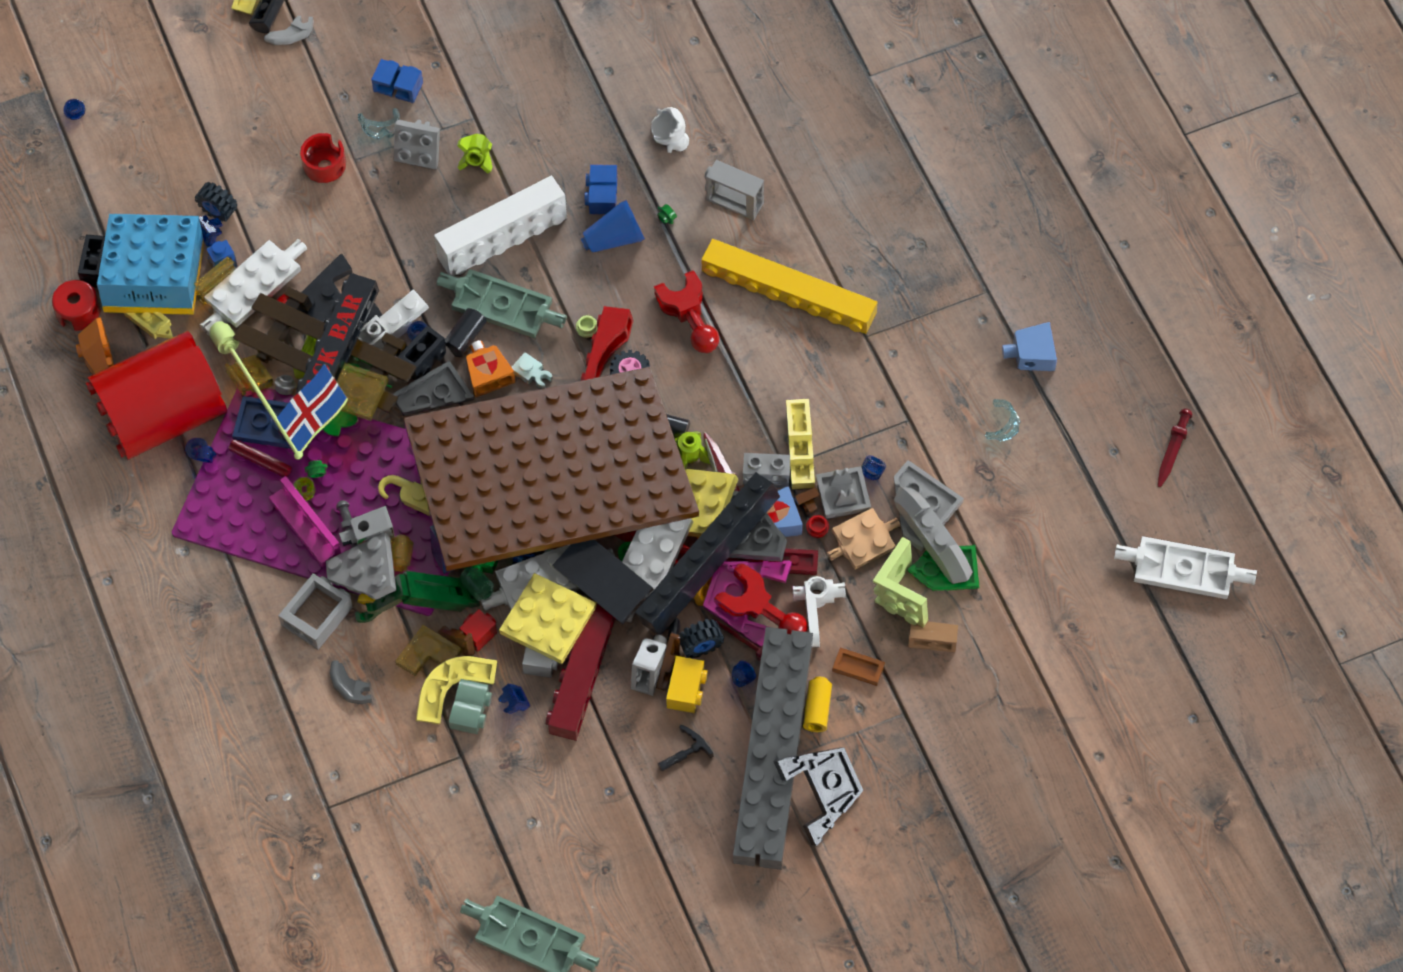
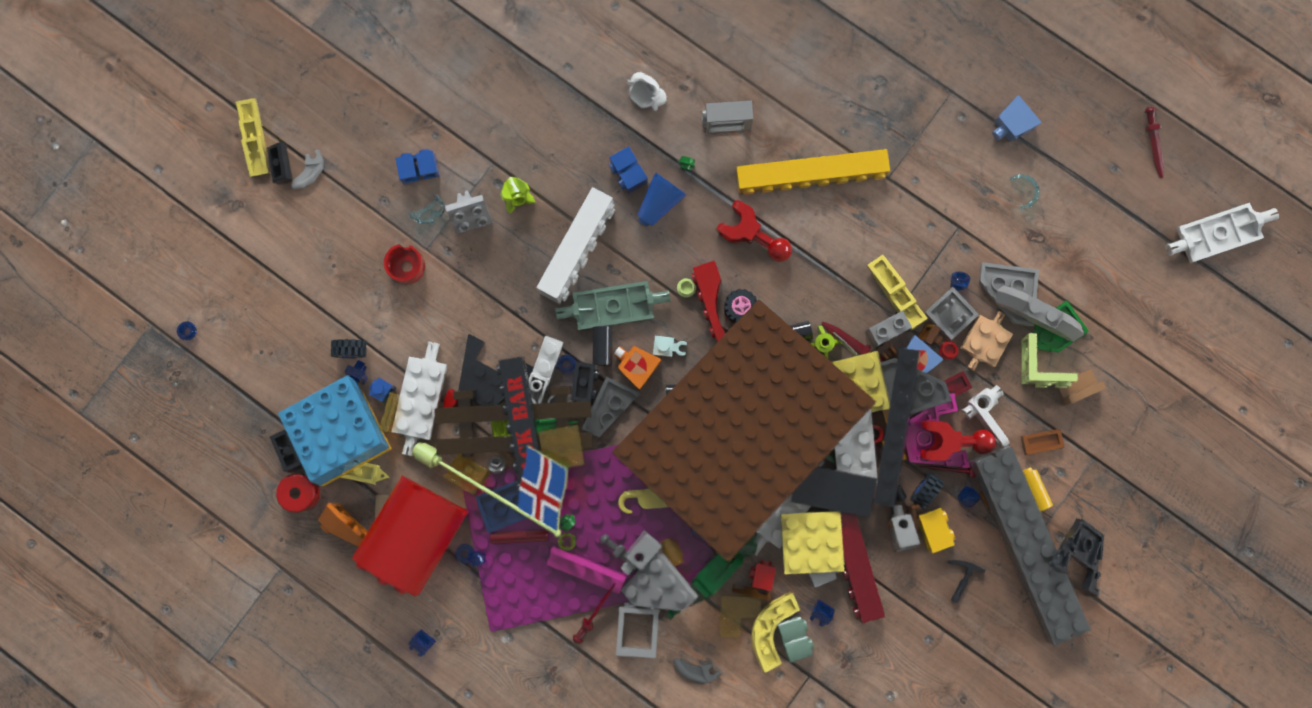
camera: 30 degrees left, 20 degrees up
(97, 504) = (422, 643): none -> clear blue tile
(270, 578) = (587, 625): none -> dark red sword

